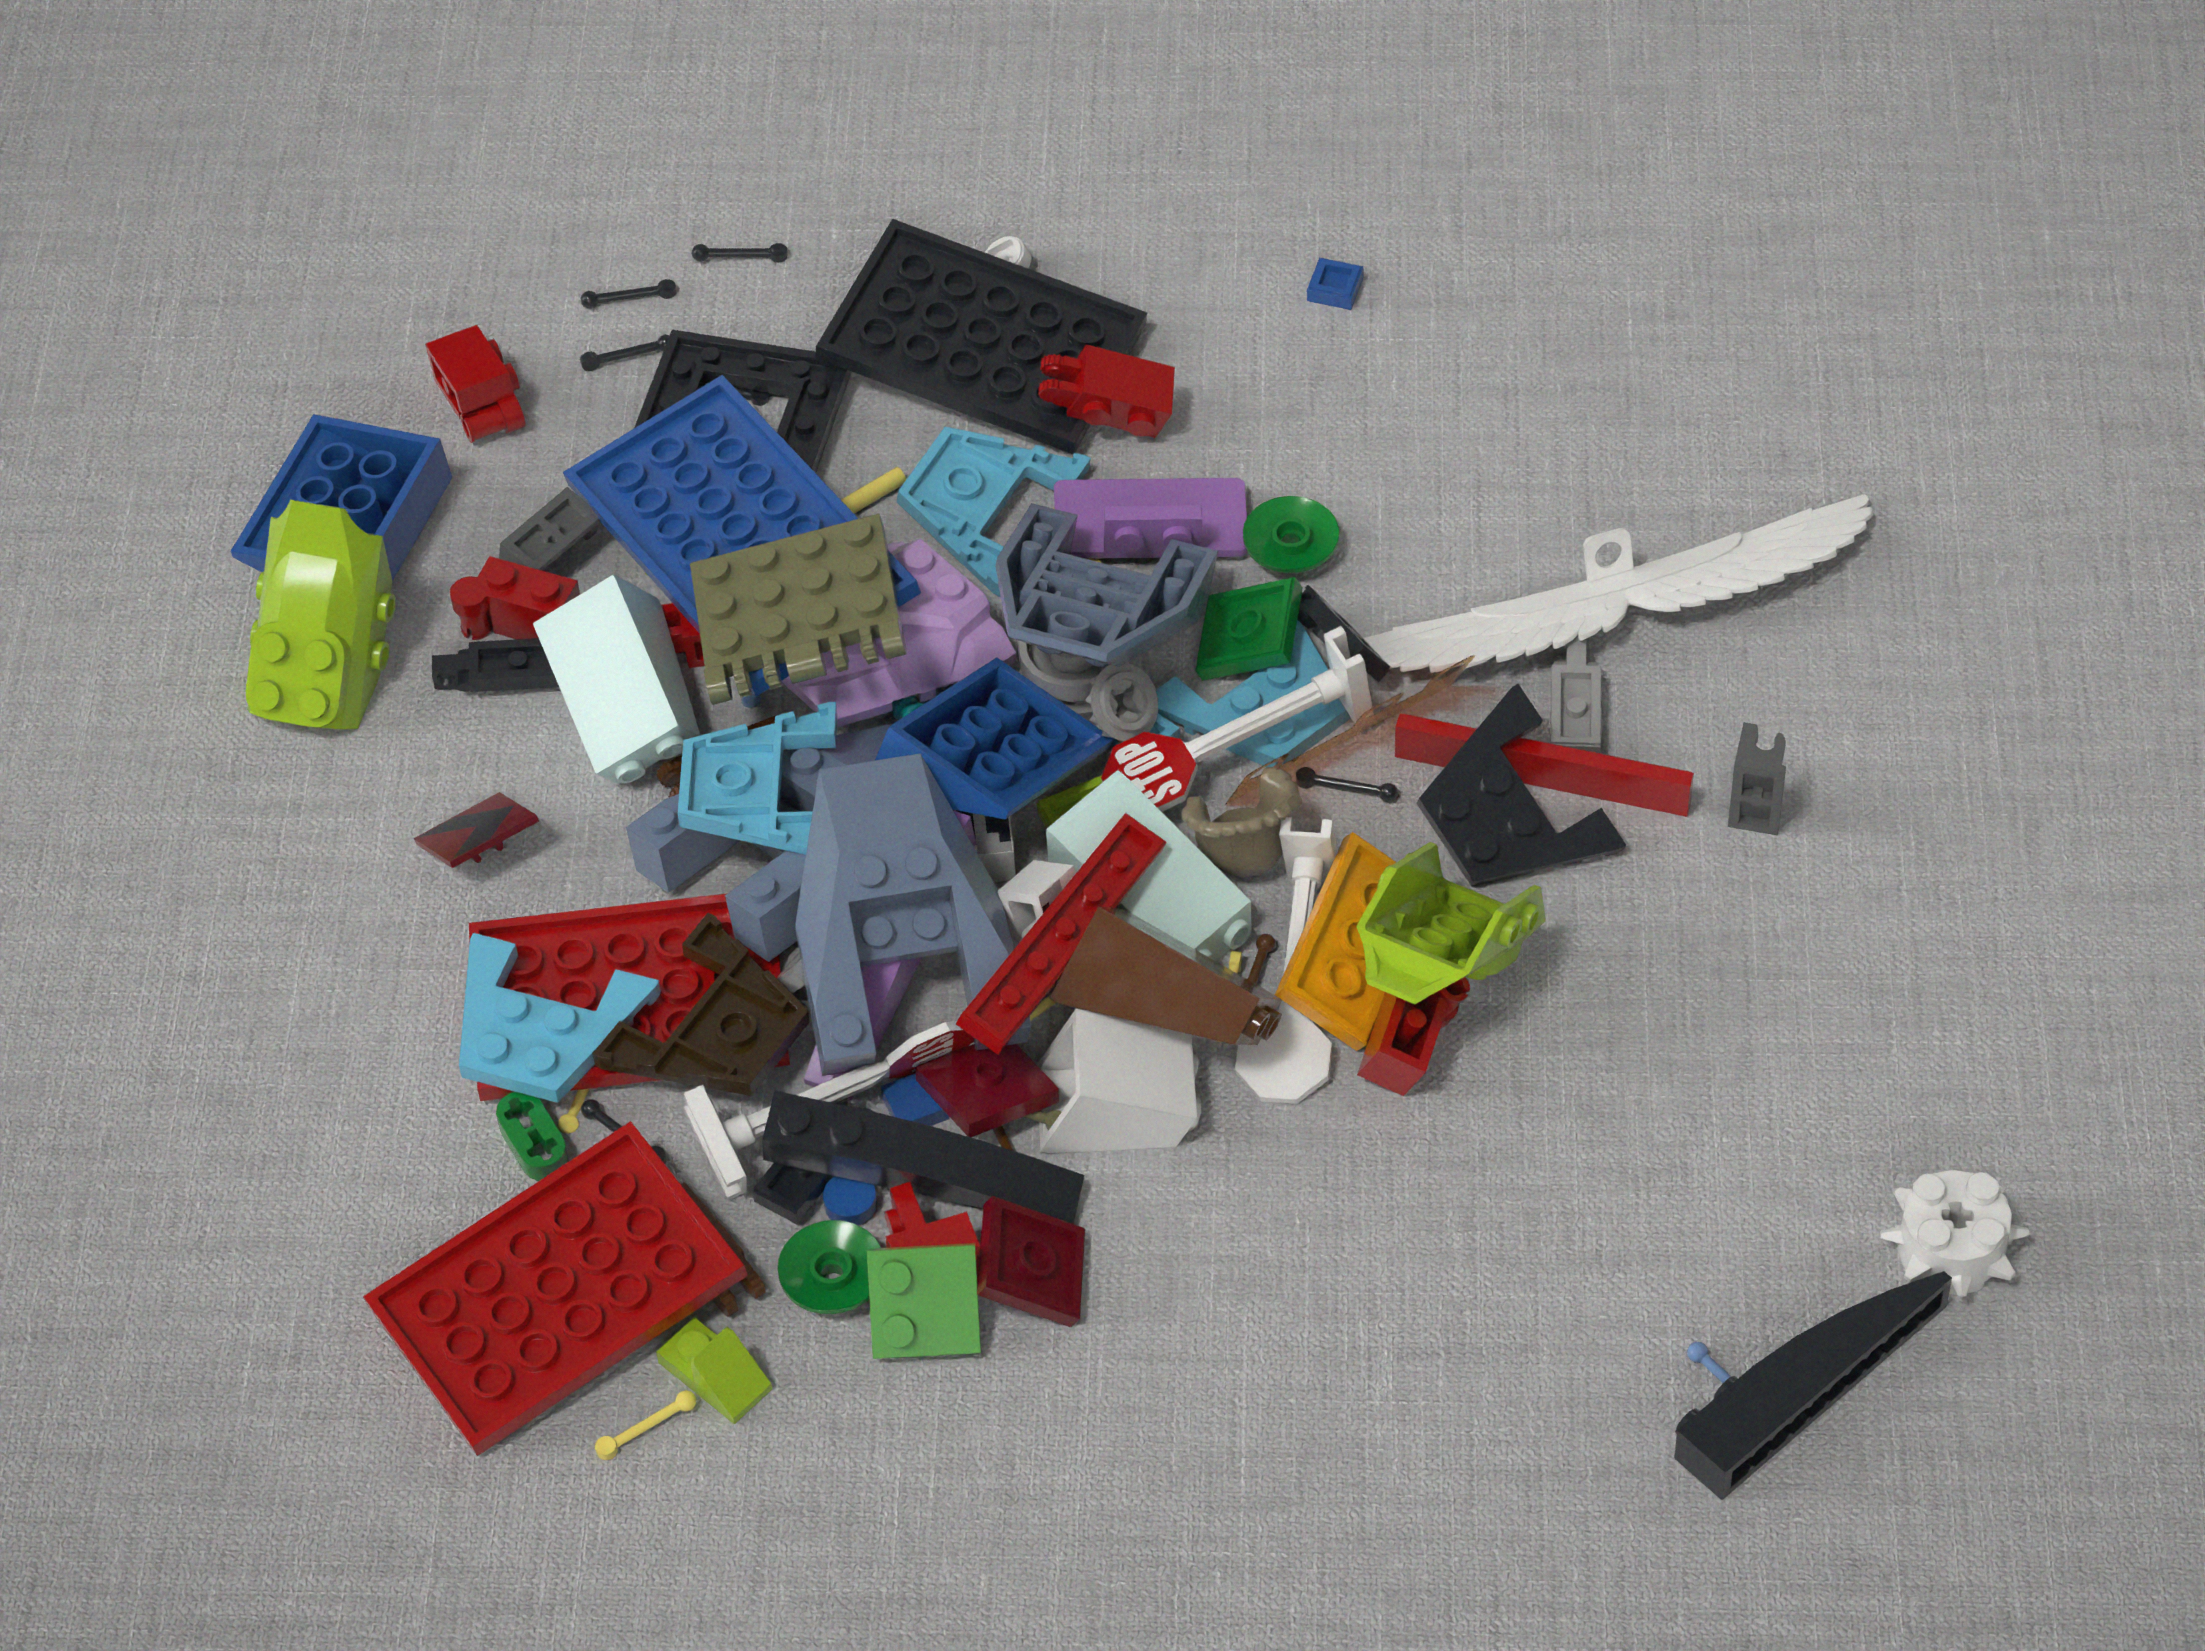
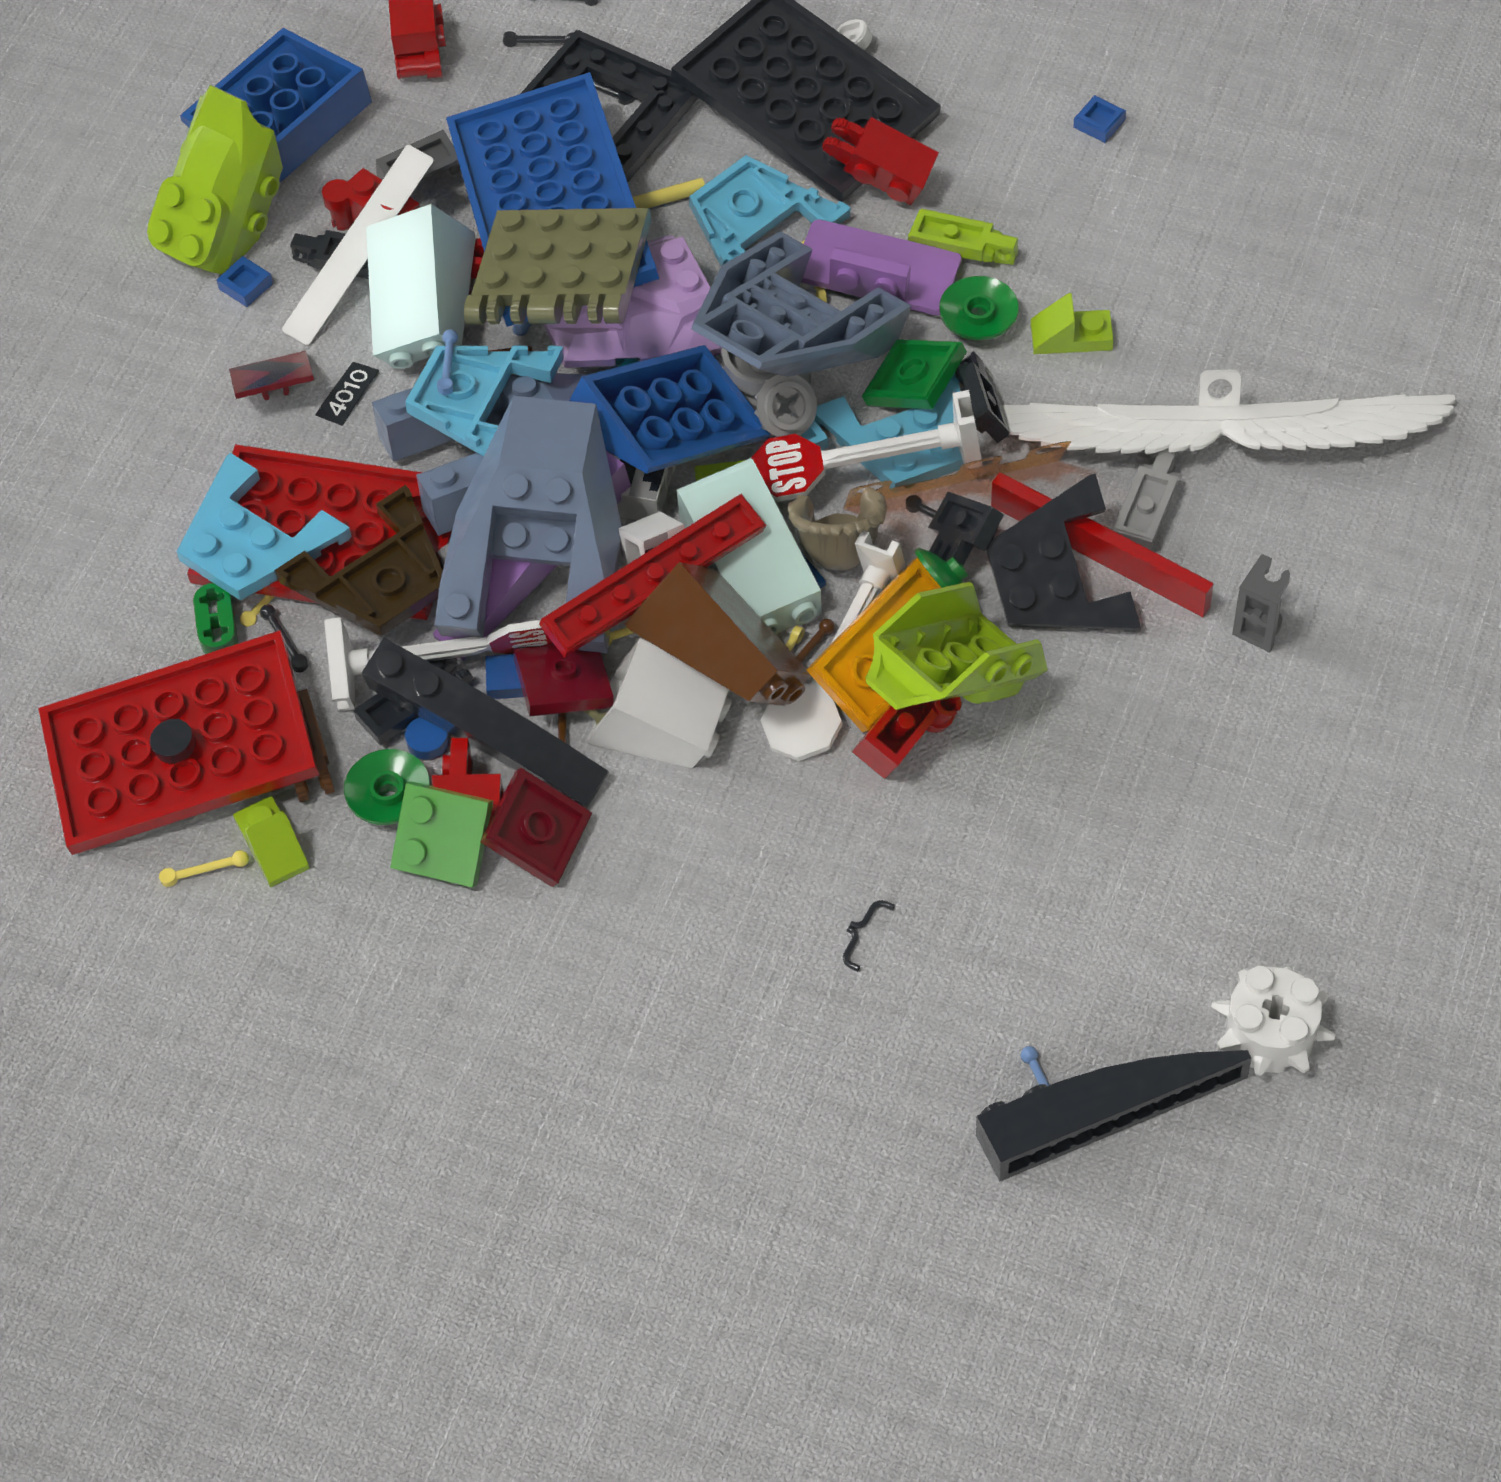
camera: 20 degrees right, 5 degrees up
(387, 730) = (244, 281): none -> blue tile
(519, 650) = (352, 250): none -> white sticker
(556, 1284) = (172, 741): none -> black tile
(572, 829) = (346, 393): none -> black sticker
(717, 781) = (445, 384): none -> medium blue hinge
(1237, 456) = (965, 236): none -> lime hinge
(1380, 787) = (963, 525): none -> black hinge
(1391, 841) = (943, 572): none -> green dish
(1402, 533) = (1069, 331): none -> lime slope
(1439, 1268) = (857, 925): none -> black piece

